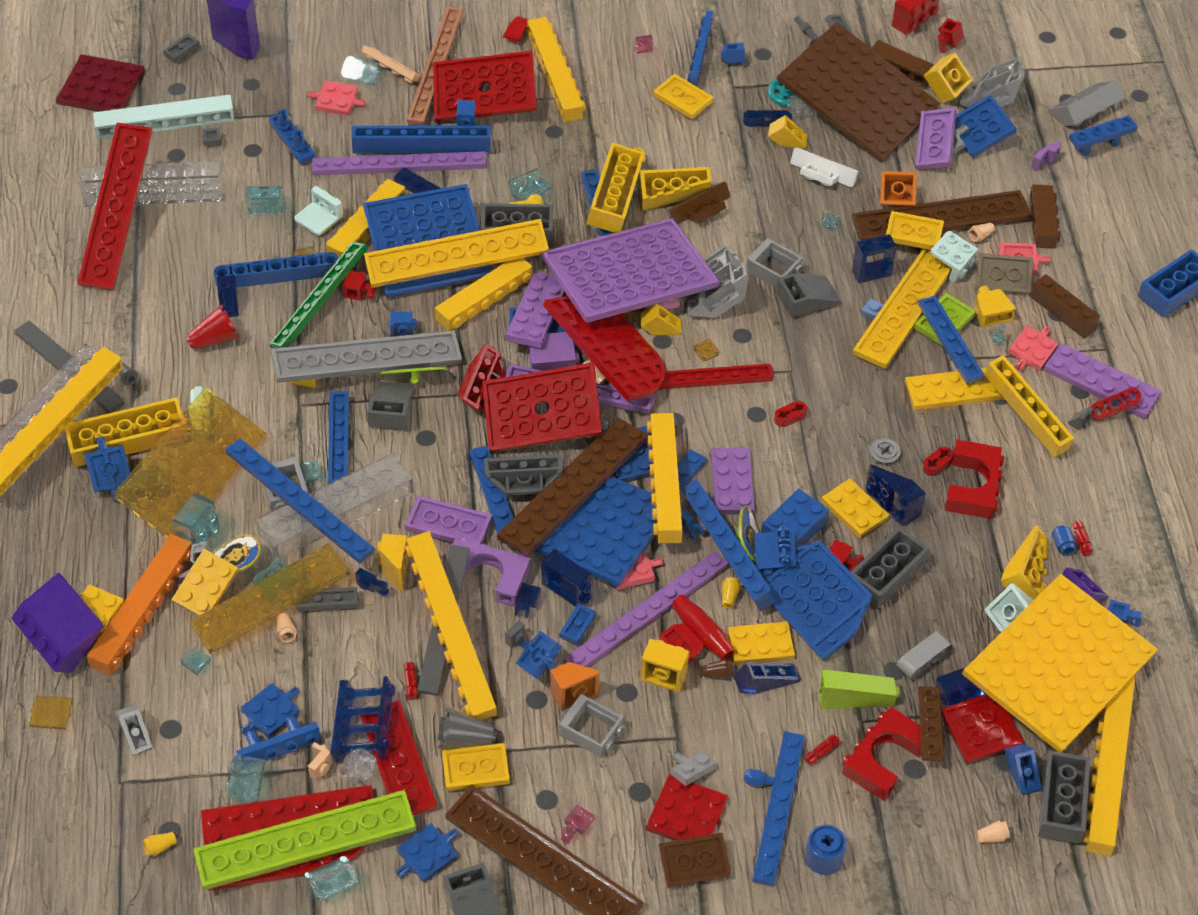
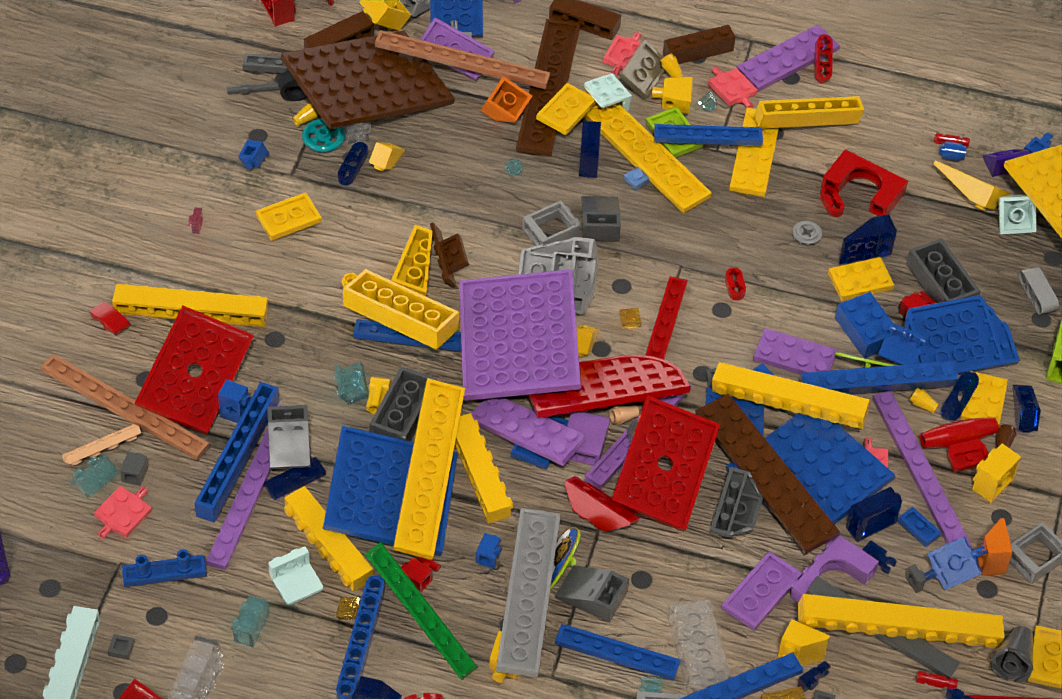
camera: 70 degrees left, 0 degrees up
(378, 89) = (134, 468): none -> dark grey brick
(446, 160) = (288, 437): none -> slope
(494, 498) = (738, 545): blue plate -> none
(701, 44) = (231, 177): blue plate -> none
(731, 611) = (967, 385): none -> clear blue beam
(822, 169) = (446, 147): white bracket -> none
(922, 145) = (462, 59): none -> nougat plate
(980, 232) = (581, 66): light nougat cone -> none
(1022, 292) = (671, 65): none -> yellow cone
(1080, 418) = (825, 87): dark grey slope -> none

